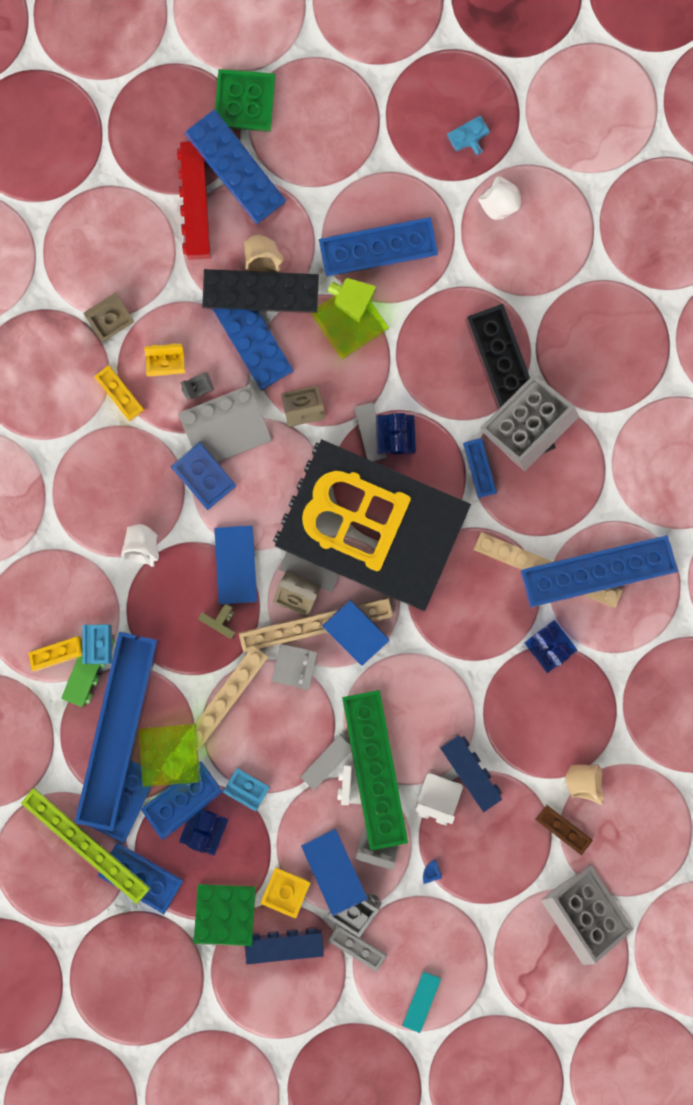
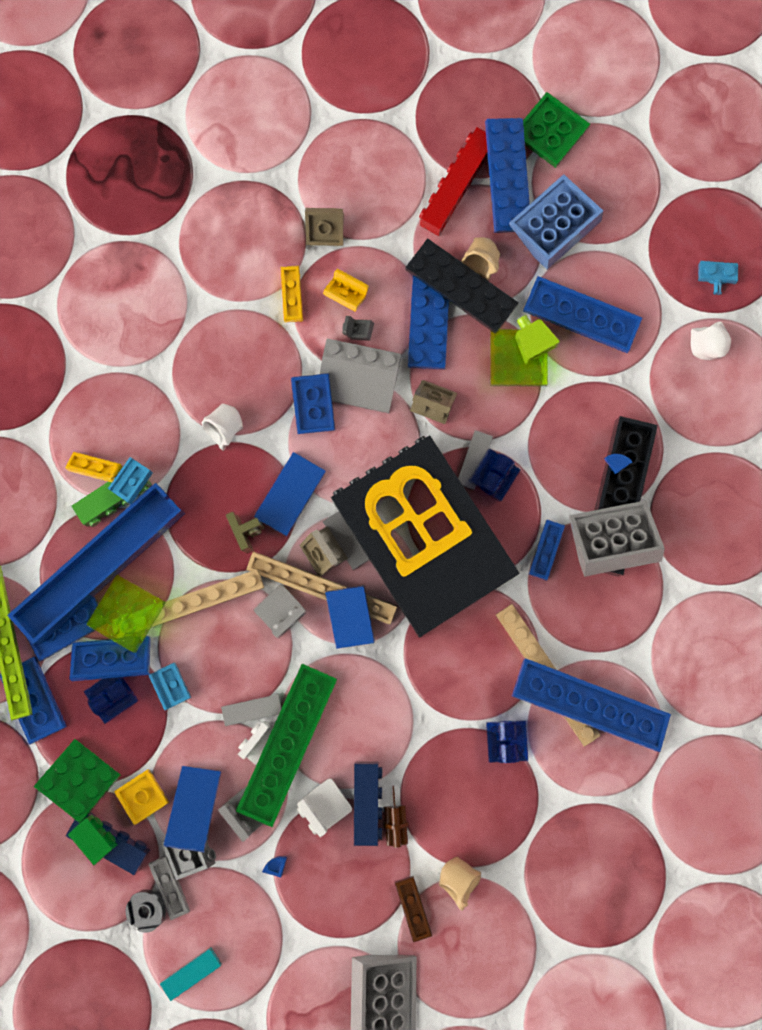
camera: 45 degrees right, 5 degrees down
(271, 950) = (93, 839): none -> green brick
(303, 181) = (556, 221): none -> medium blue slope
(354, 967) = (138, 918): none -> plate
(490, 357) = (617, 462): none -> blue tile
(505, 773) = (395, 824): none -> reddish brown piece

